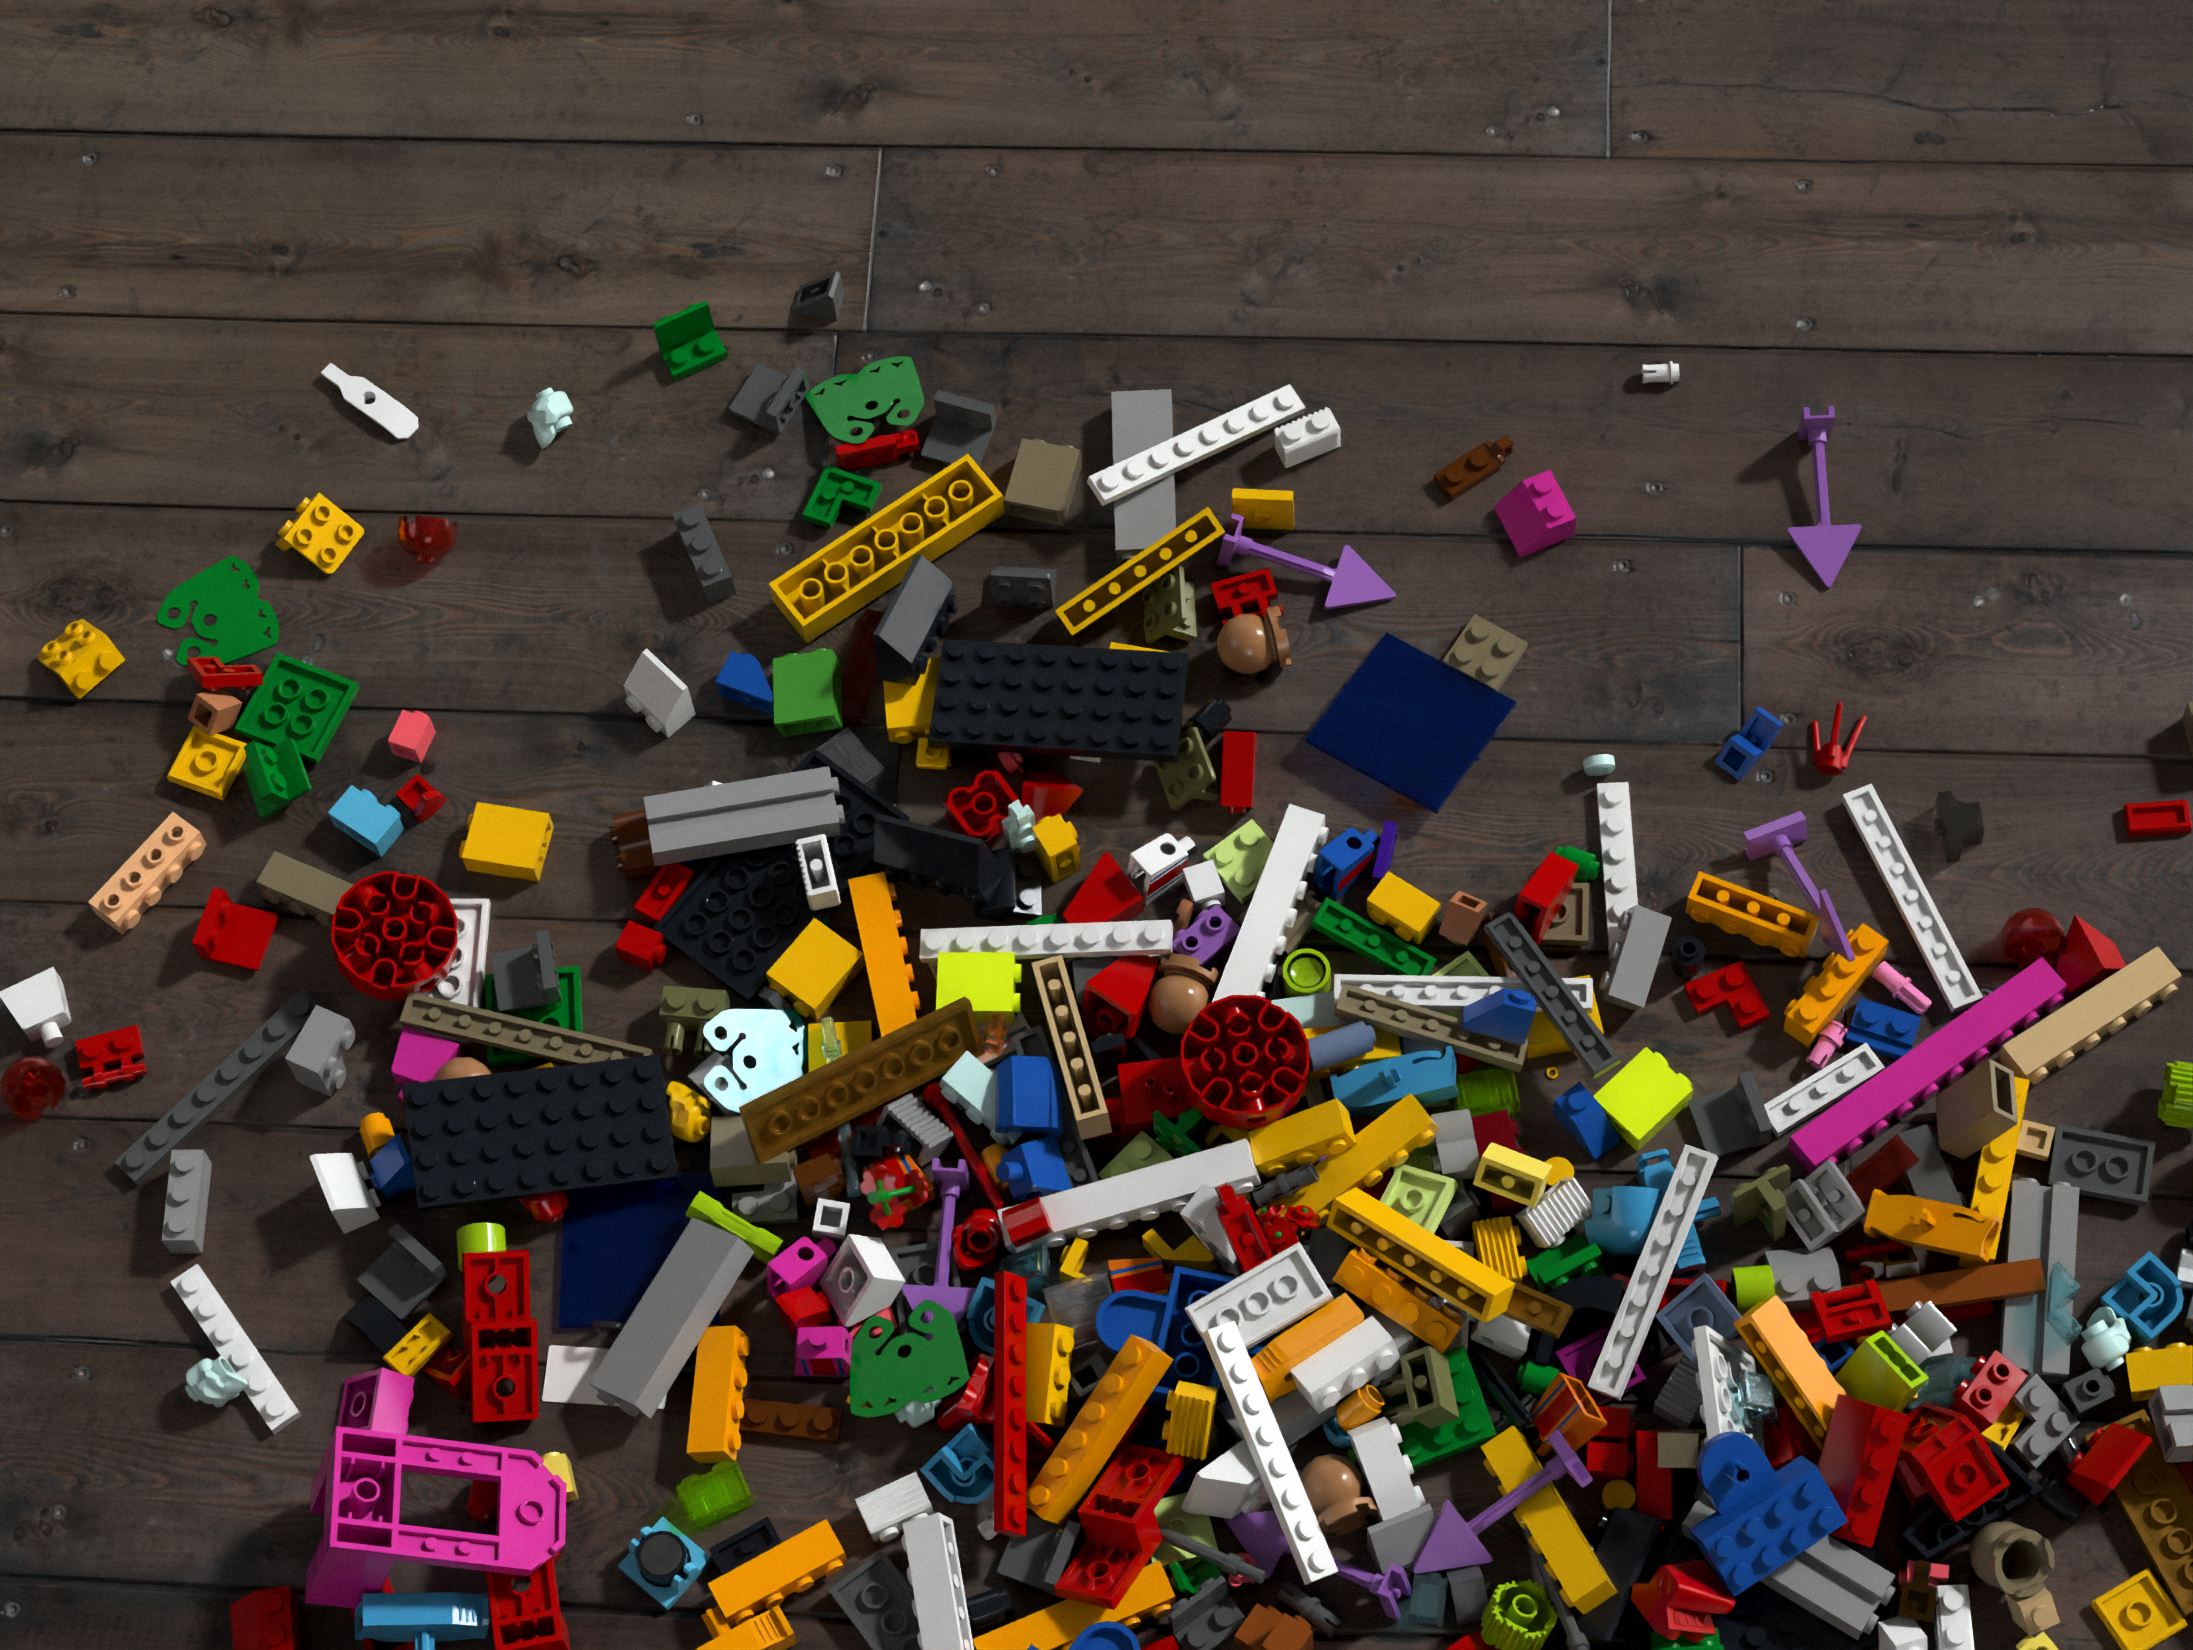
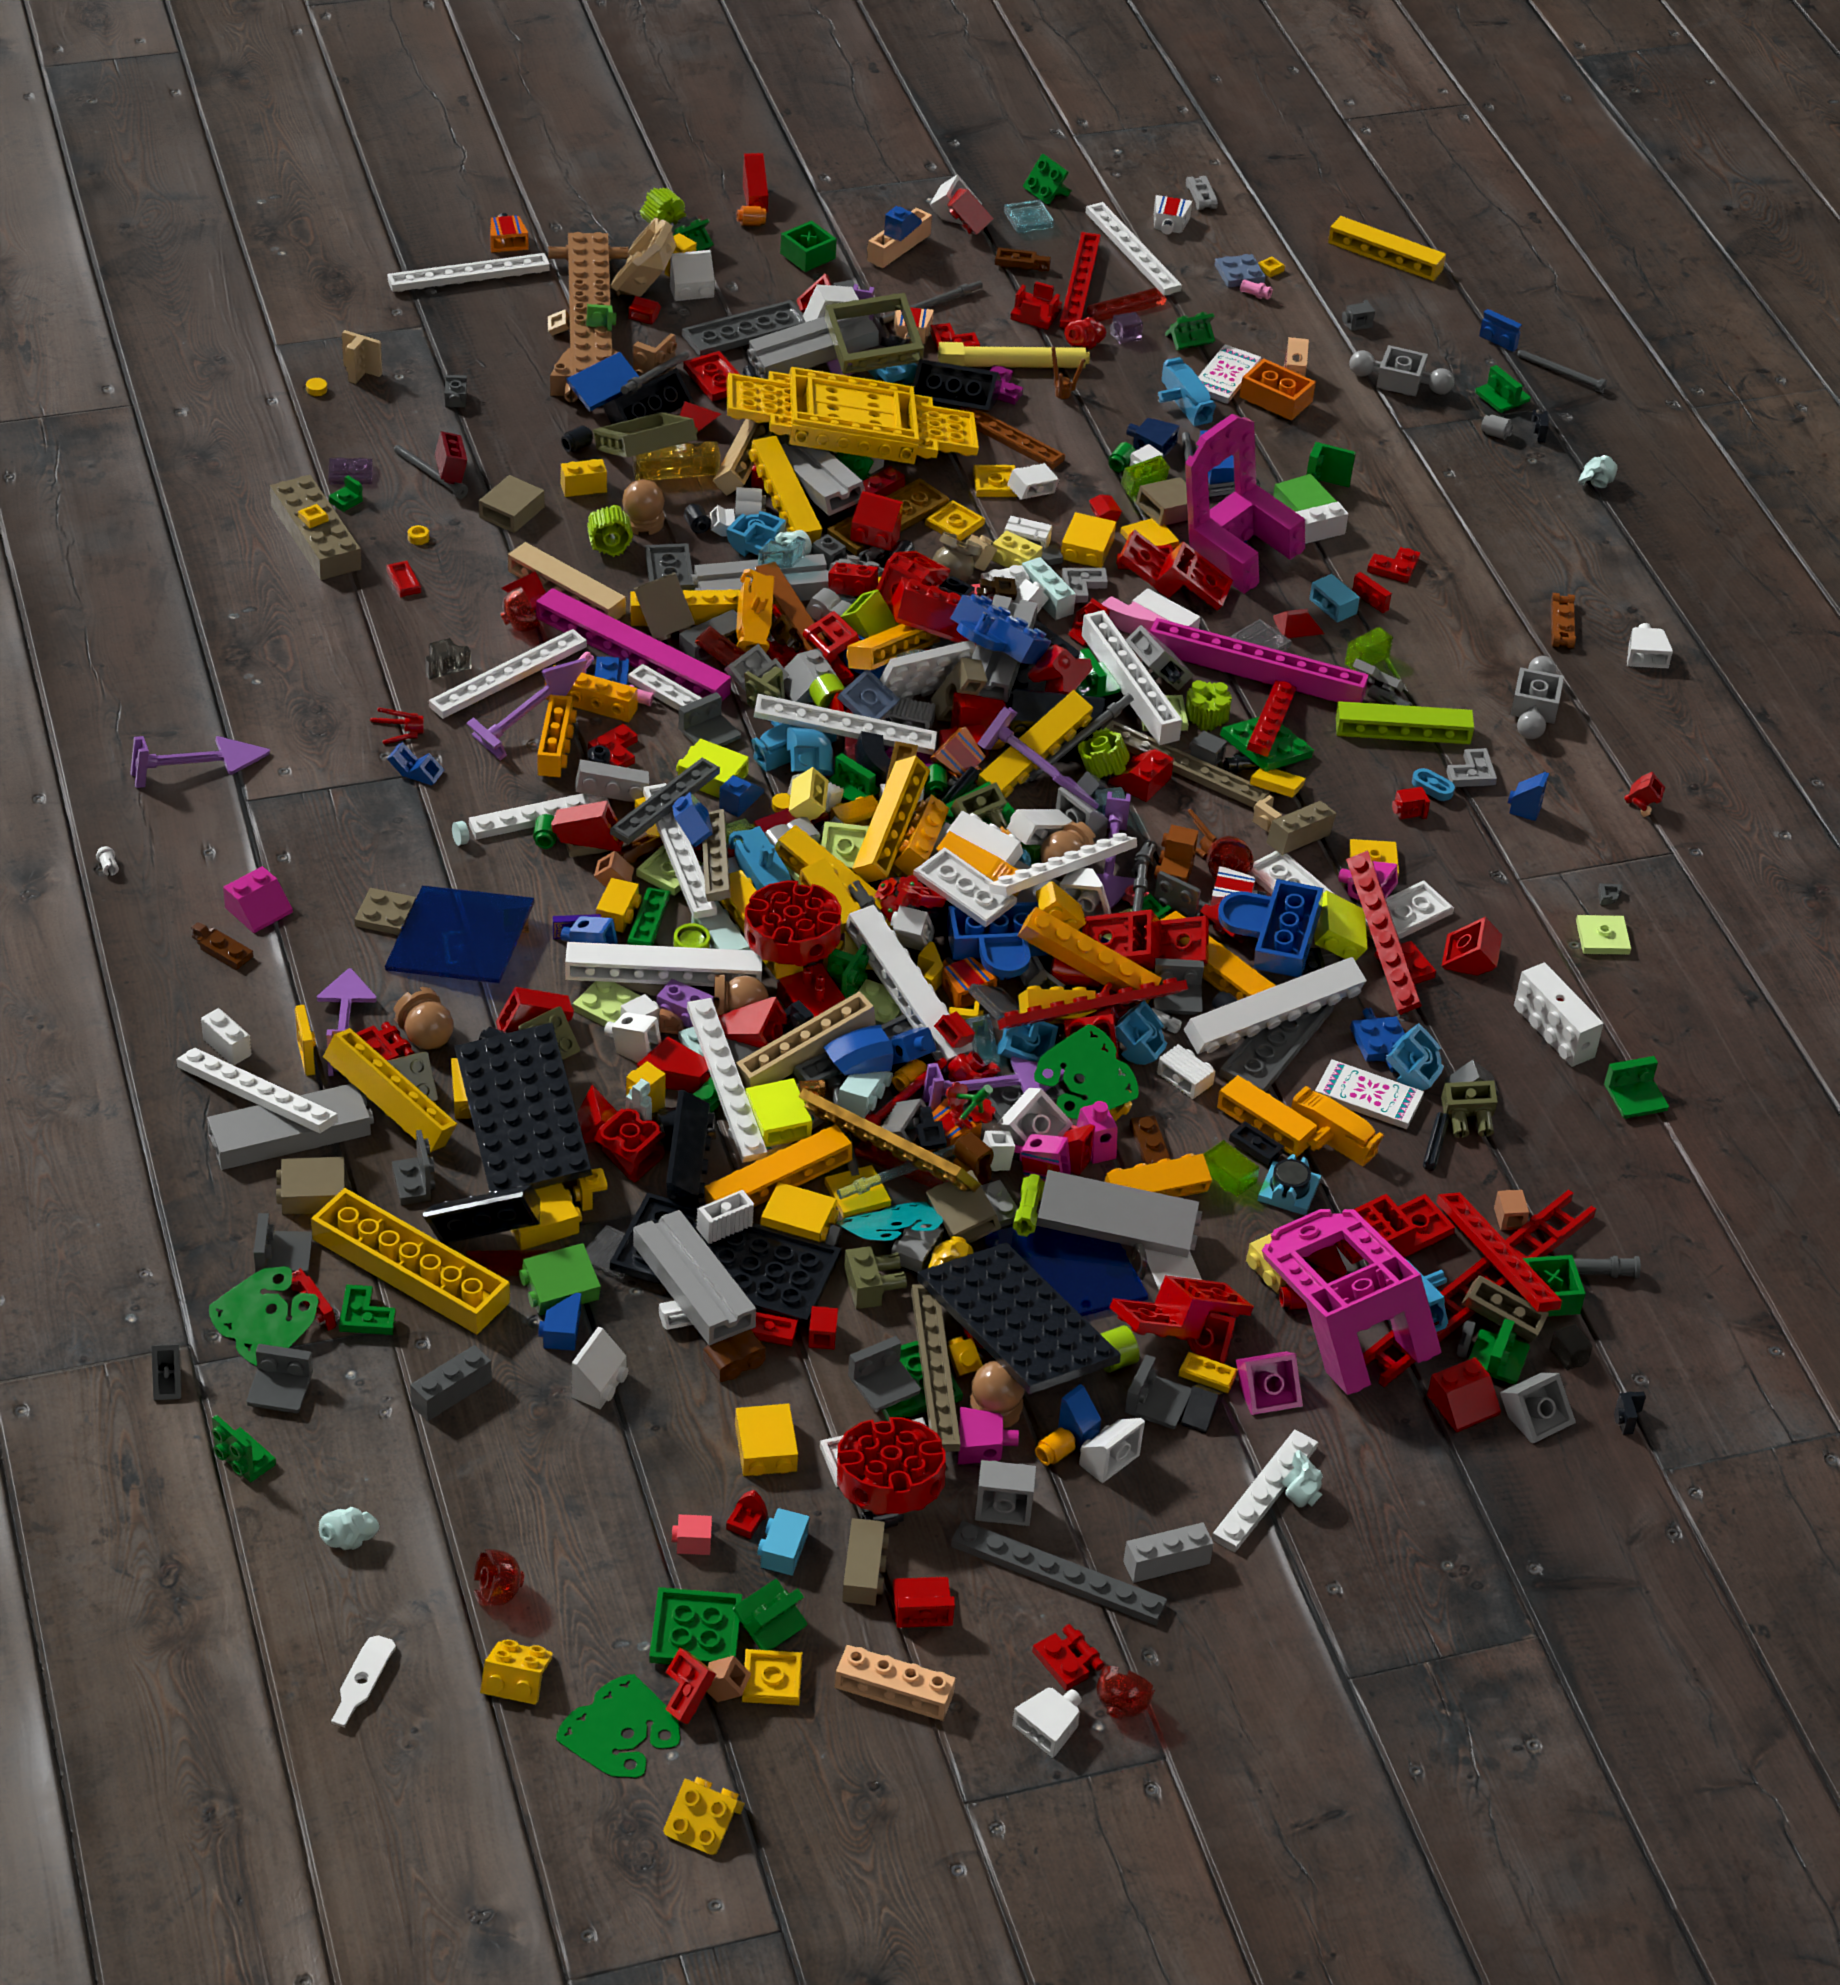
camera: 120 degrees left, 20 degrees down
(1340, 1045) = (746, 882): sand blue brick -> none

